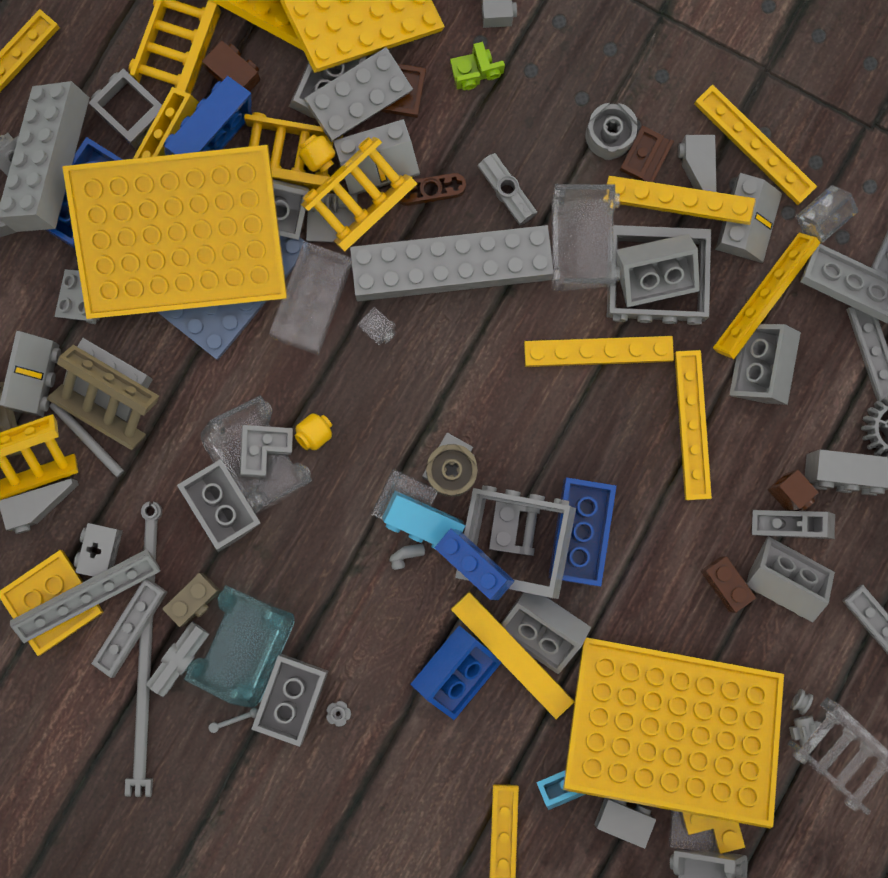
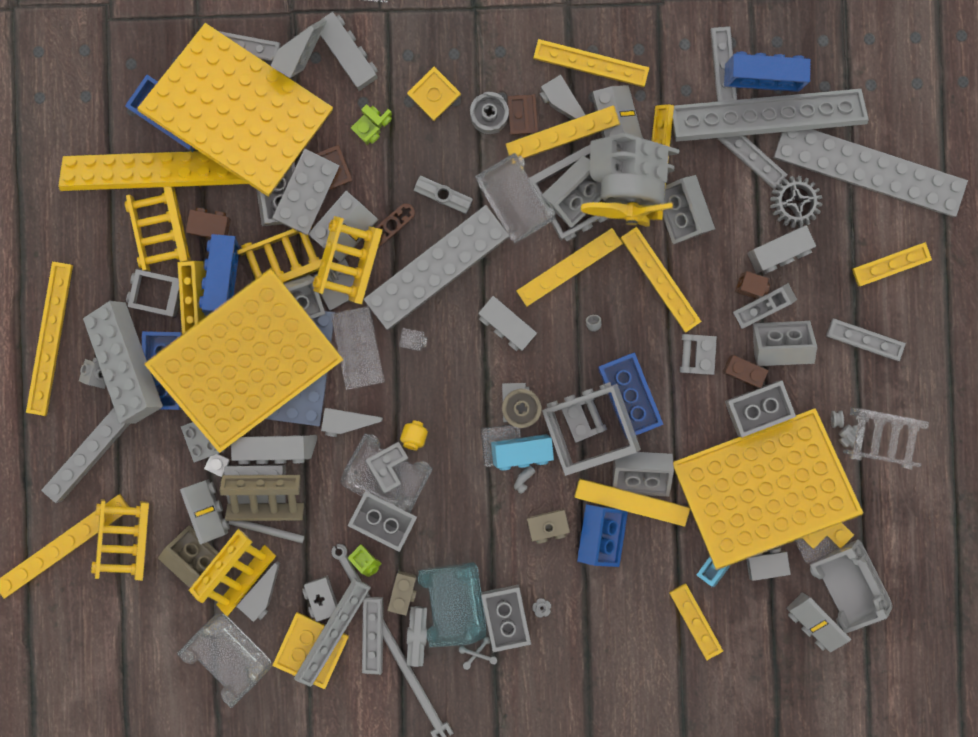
camera: 25 degrees left, 5 degrees up
(76, 331) = (216, 464): none -> white plate
(150, 351) = (273, 448): none -> light grey wedge
(172, 539) = (364, 561): none -> lime bracket
(246, 370) = (342, 421): none -> light grey slope
(246, 738) = (493, 660): none -> light grey hinge
(317, 153) = (302, 249): yellow head -> none
(402, 624) = (548, 525): none -> dark tan brick
(474, 564) = (573, 460): blue brick -> none
(491, 371) = (506, 324): none -> light grey brick
(563, 76) = (433, 93): none -> yellow plate
(589, 428) = (593, 322): none -> light grey hinge
(692, 538) = (704, 354): none -> light grey plate
(721, 636) = (760, 408): none -> light grey brick
(728, 285) = (630, 176): none -> light grey brick
(827, 213) = (666, 82): clear brick -> none

